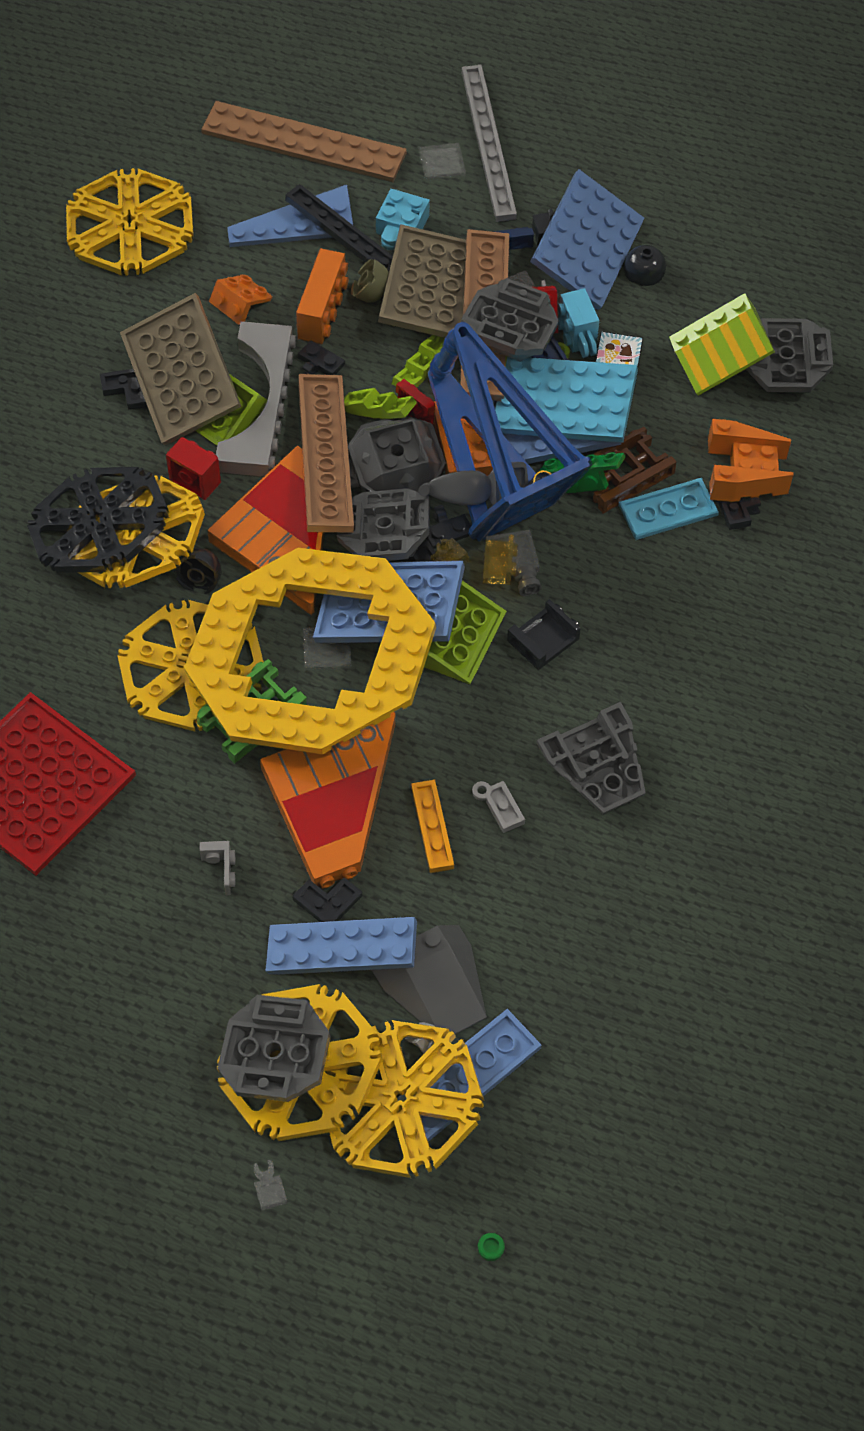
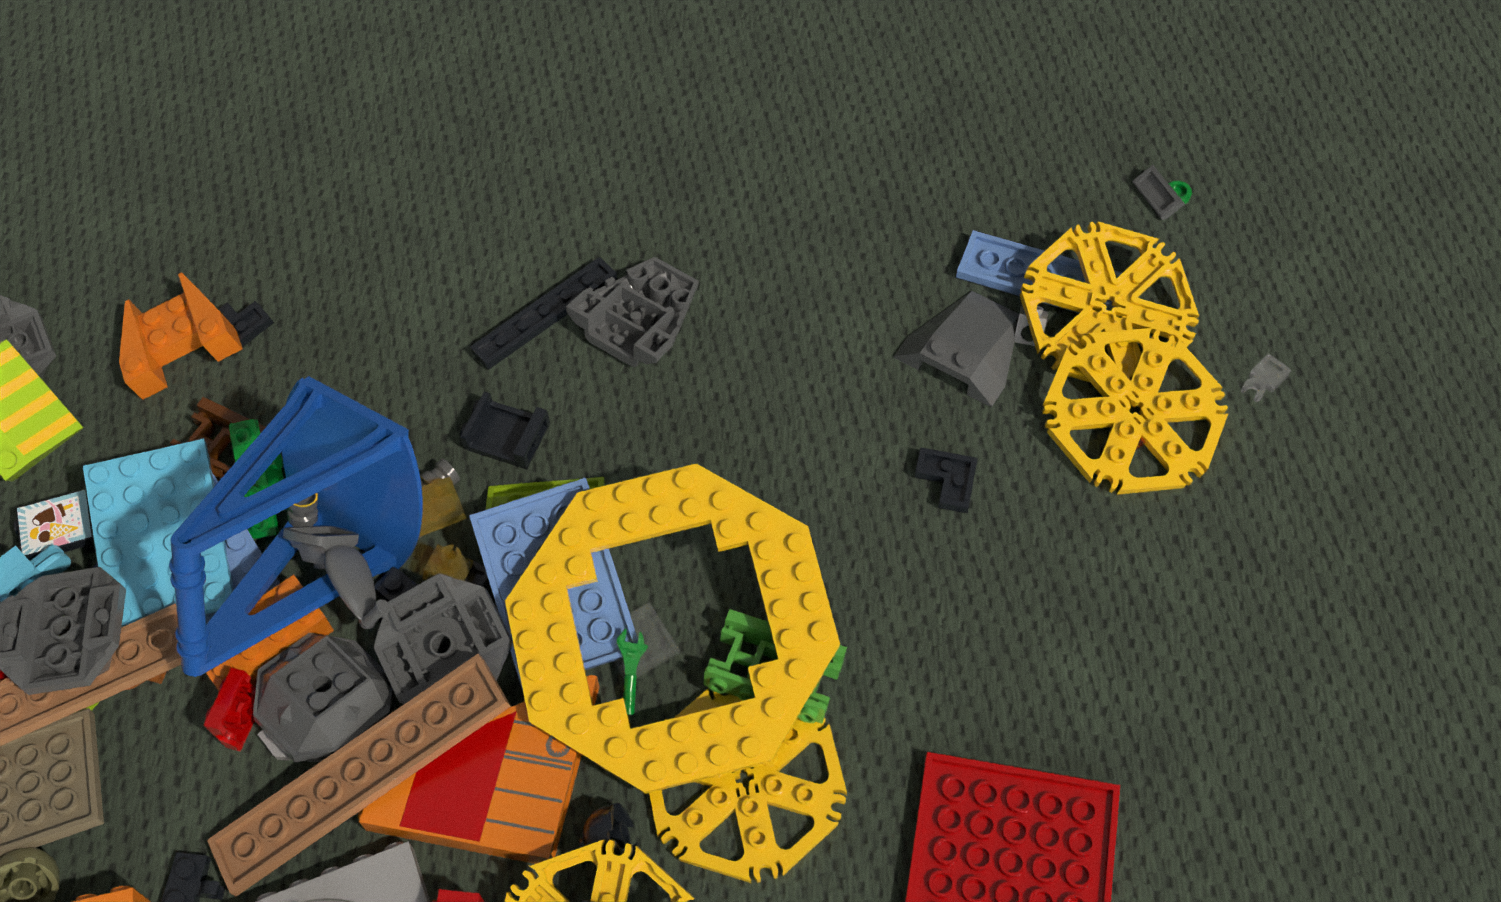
camera: 115 degrees left, 0 degrees up
(220, 850) = (971, 611): light grey bracket -> none
(270, 1026) = (1178, 387): dark grey piece -> none
(311, 629) = (631, 655): none -> green piece
(331, 799) = (854, 523): slope -> none
(341, 946) = (996, 429): medium blue plate -> none
(376, 405) = (249, 752): lime slope -> none
(419, 364) = (148, 751): lime slope -> none
(432, 826) = (801, 426): light orange plate -> none
(498, 1225) = (1158, 192): none -> dark grey tile
(501, 805) = (739, 377): light grey hinge -> none
(639, 704) = (539, 315): none -> black plate
(668, 508) = (255, 384): medium azure tile -> none

